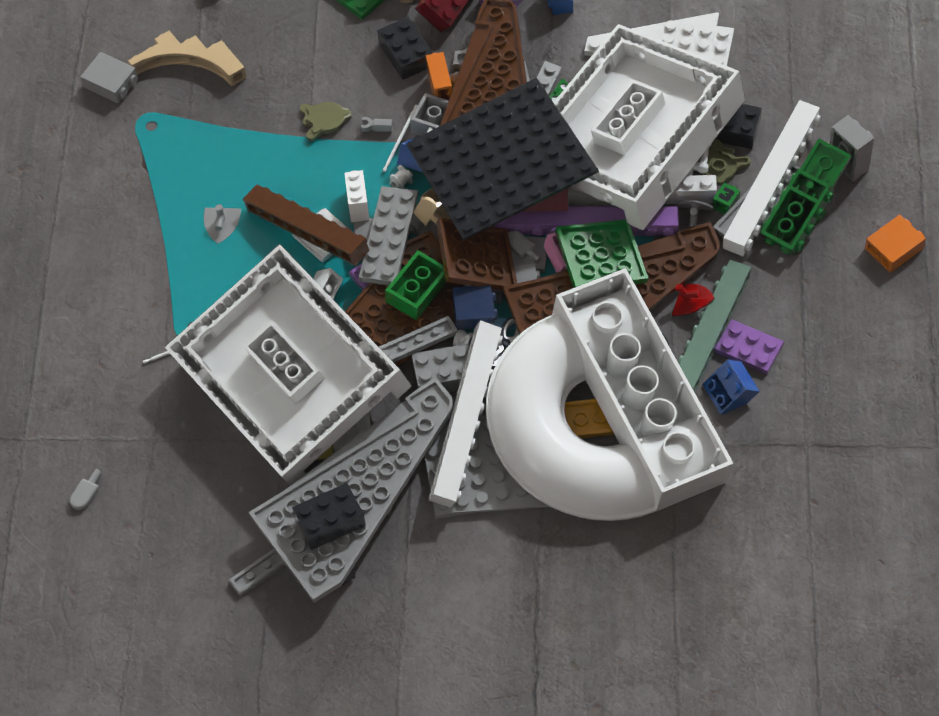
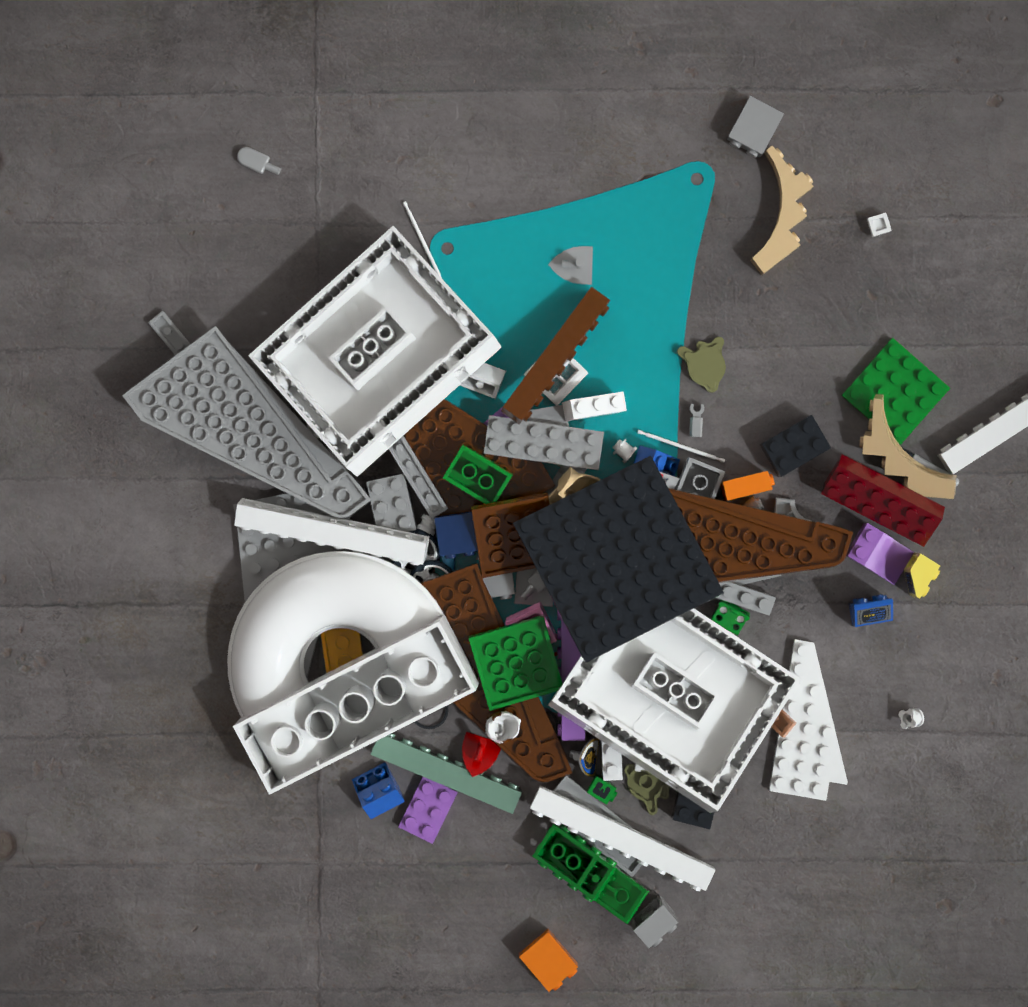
camera: 85 degrees right, 30 degrees up
(329, 516) = (203, 405): black brick -> none
(664, 267) = (502, 727): none -> white hair

